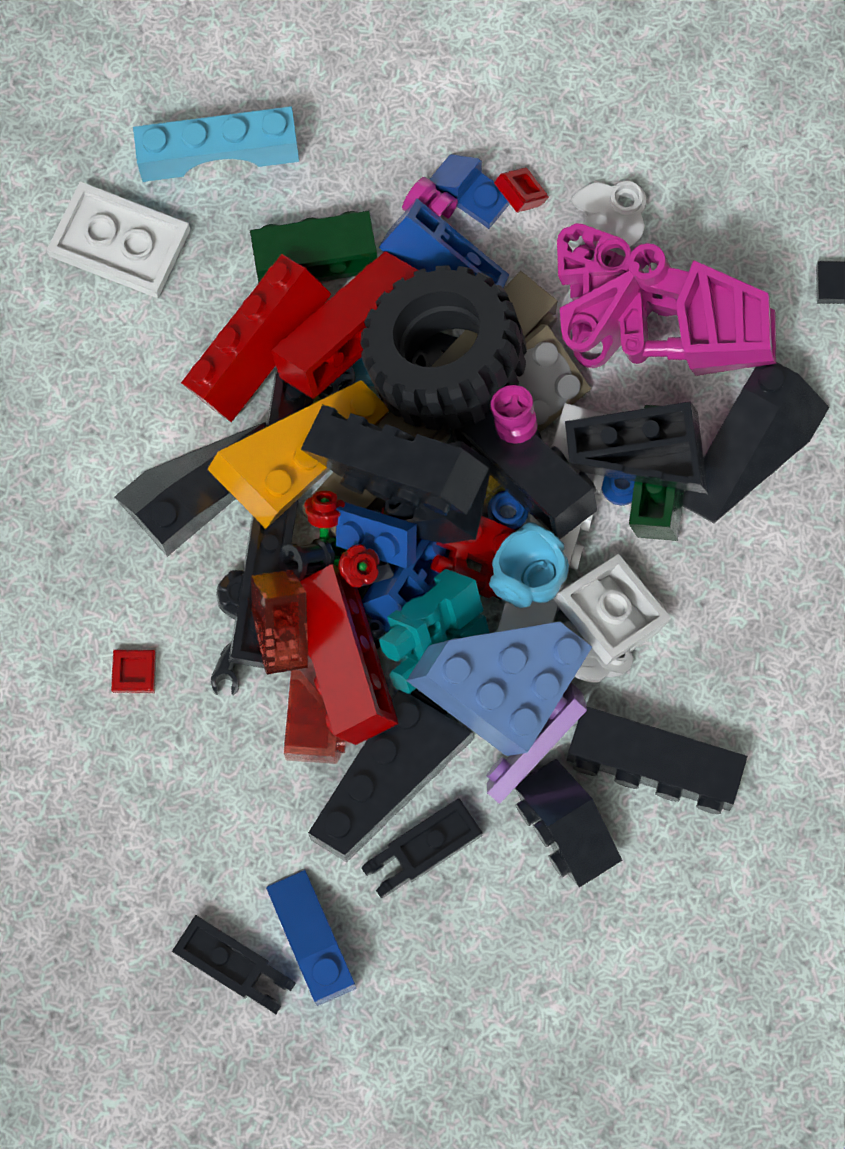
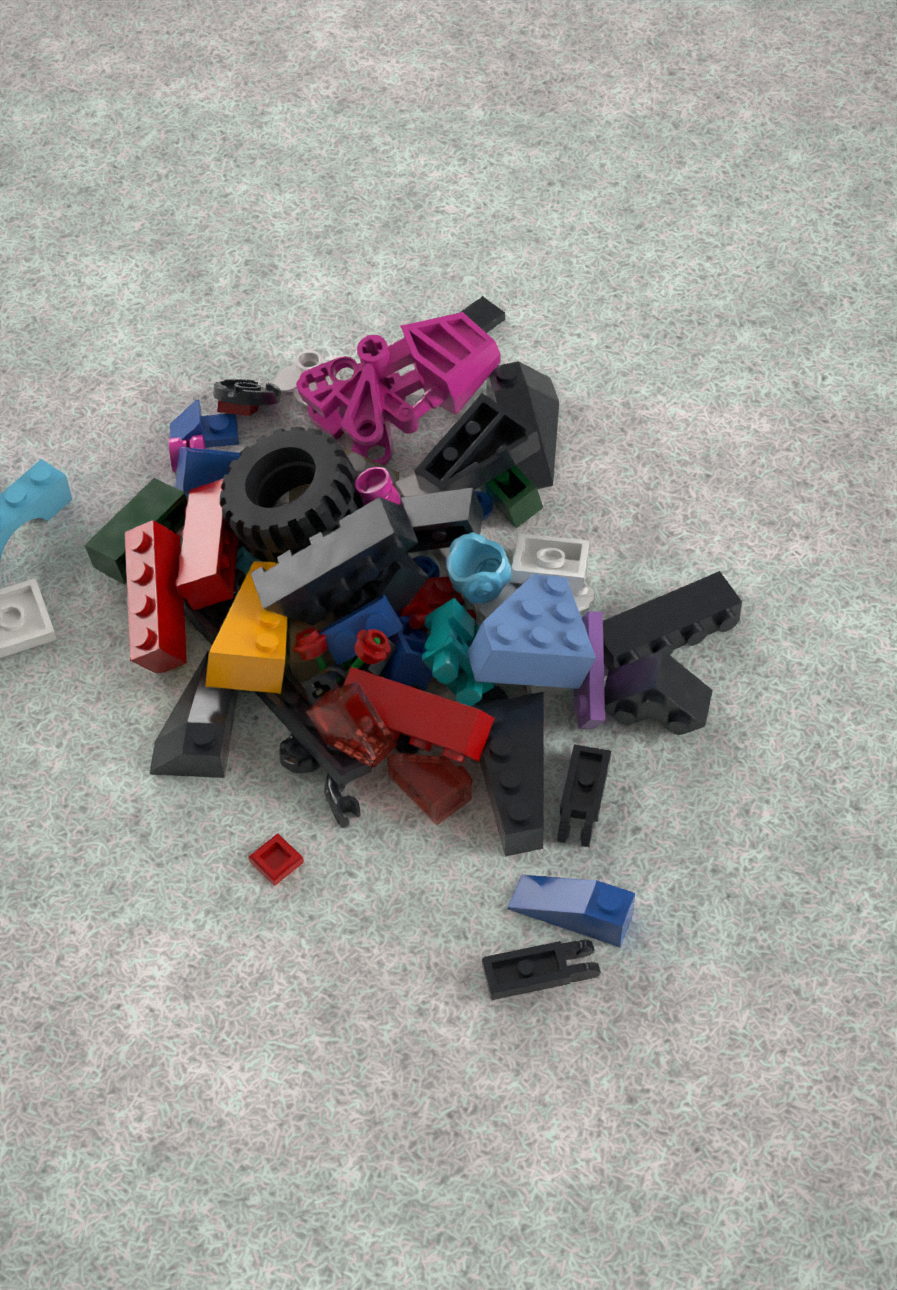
camera: 45 degrees left, 20 degrees down
(536, 186) = (246, 392): none -> black tile

